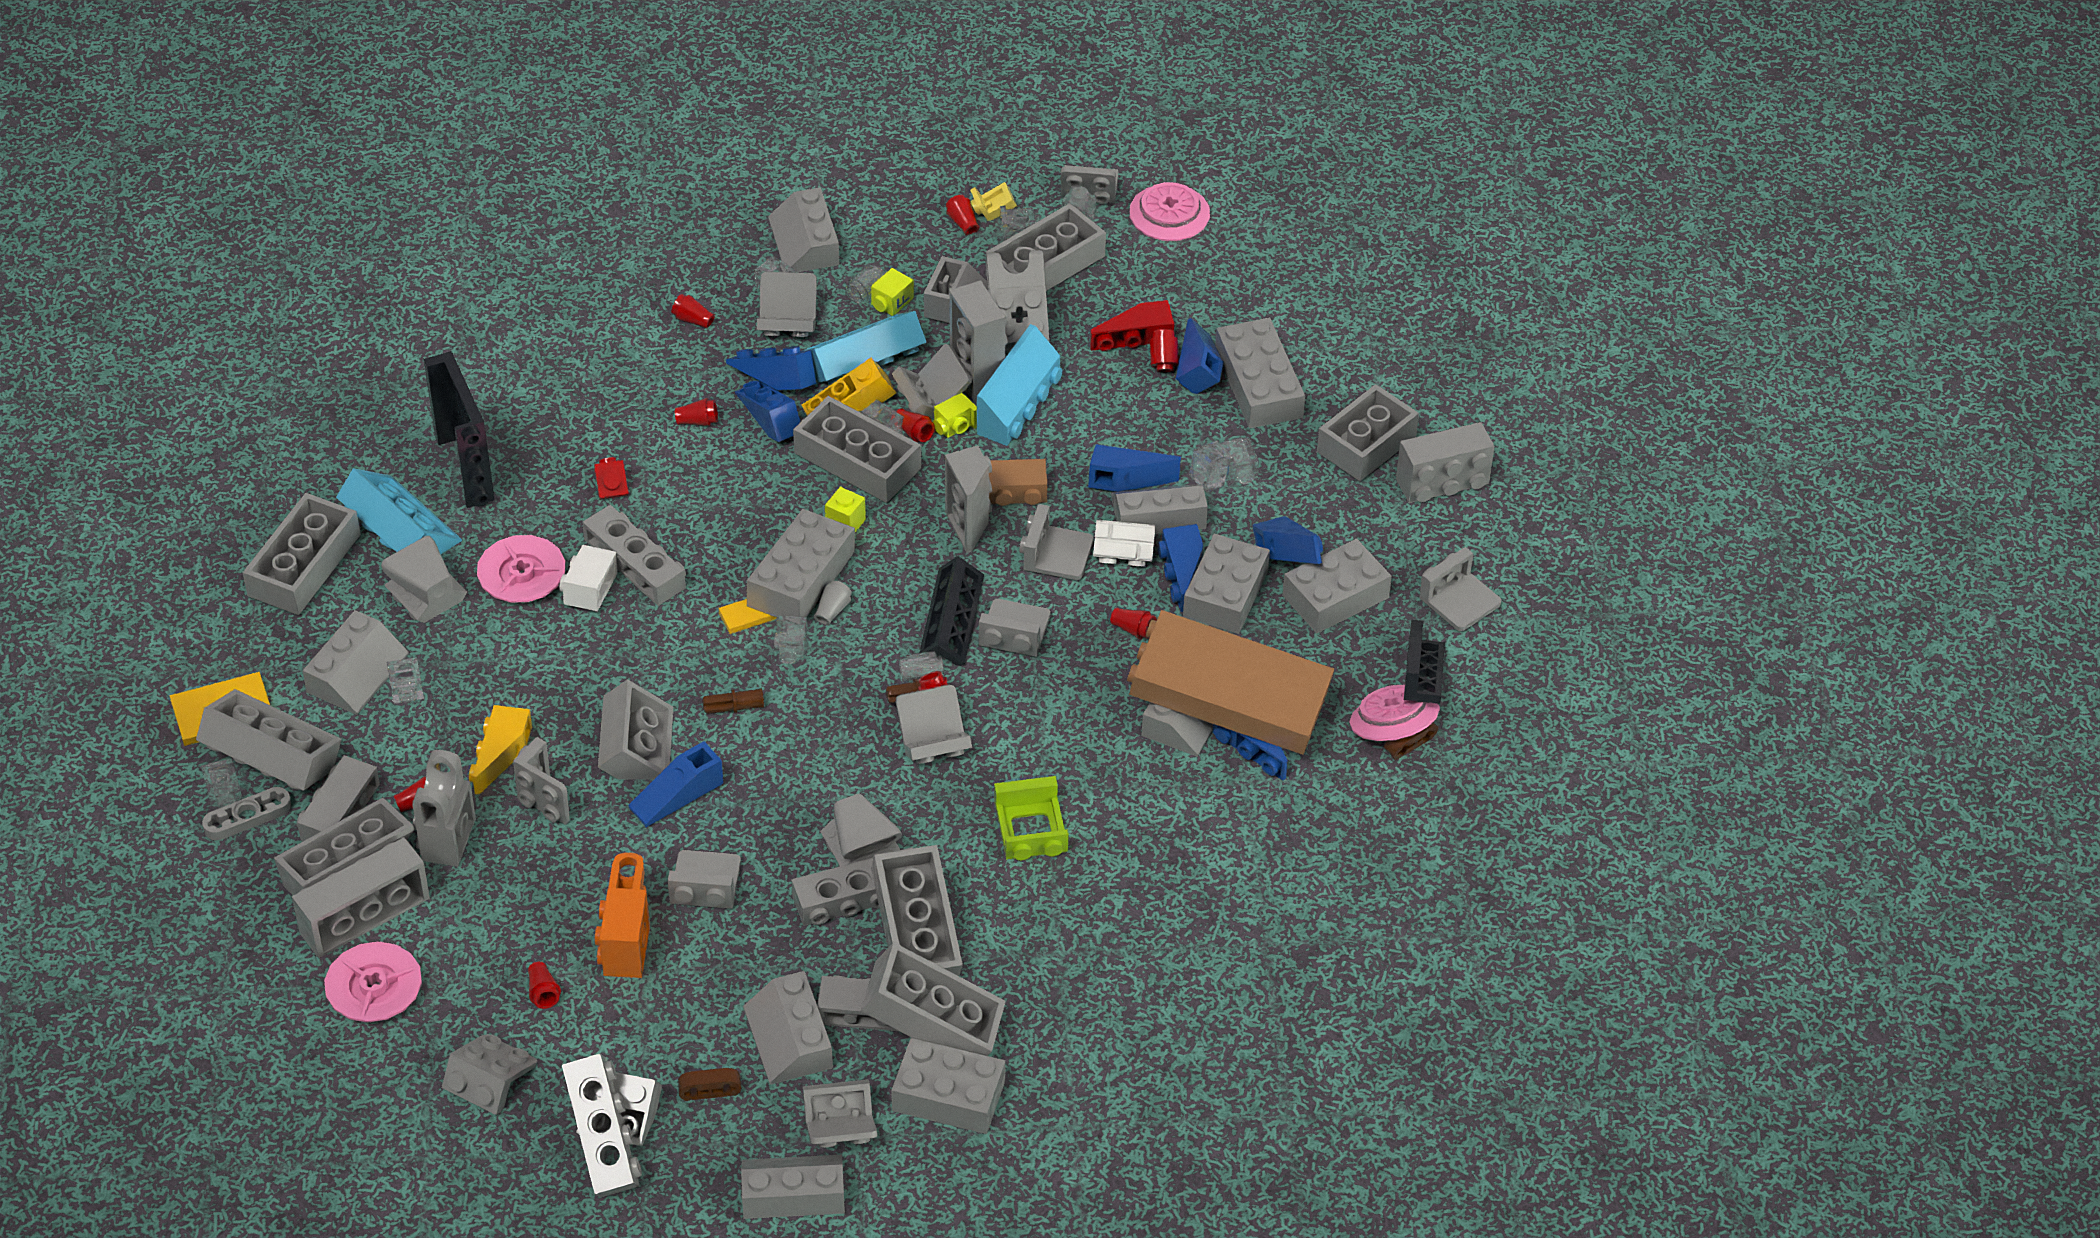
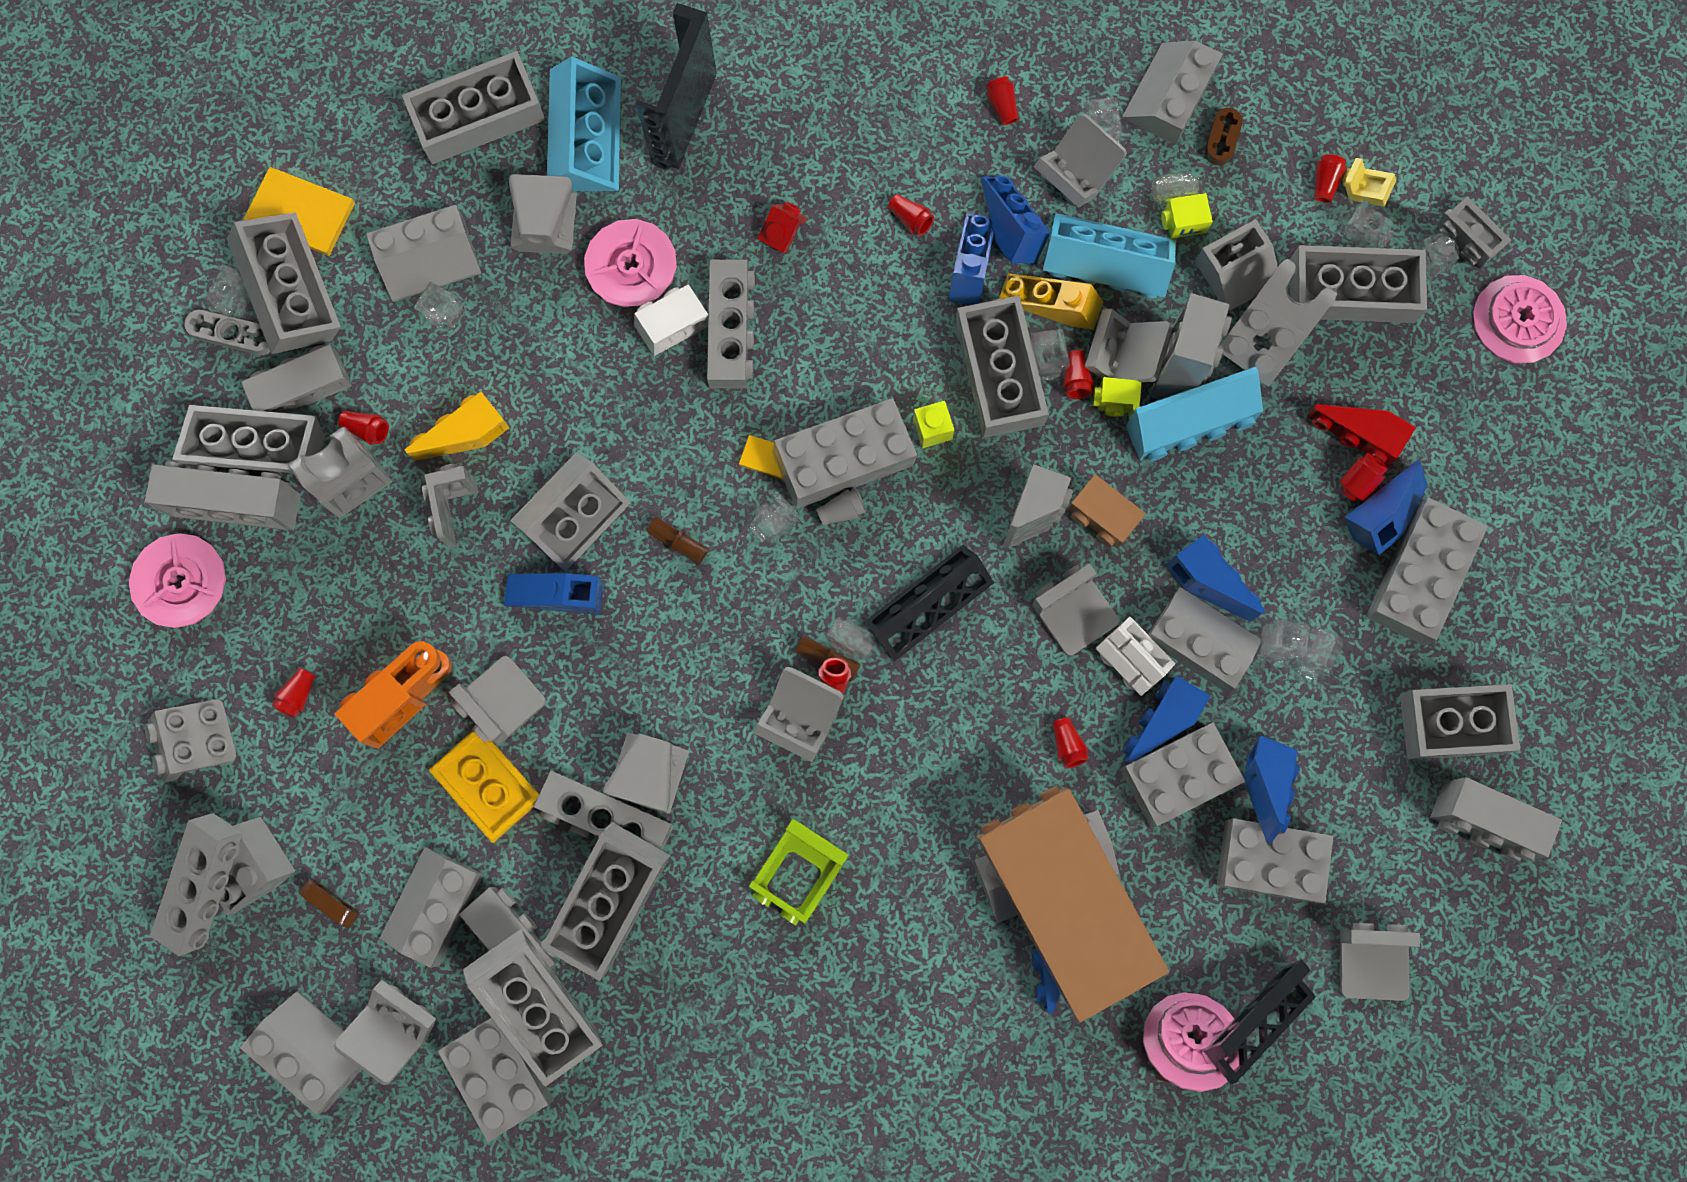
camera: 45 degrees right, 30 degrees up
(748, 937) = (485, 785): none -> yellow tile
(862, 240) = (1230, 137): none -> reddish brown beam
(1013, 627) = (966, 661): light grey bracket -> none

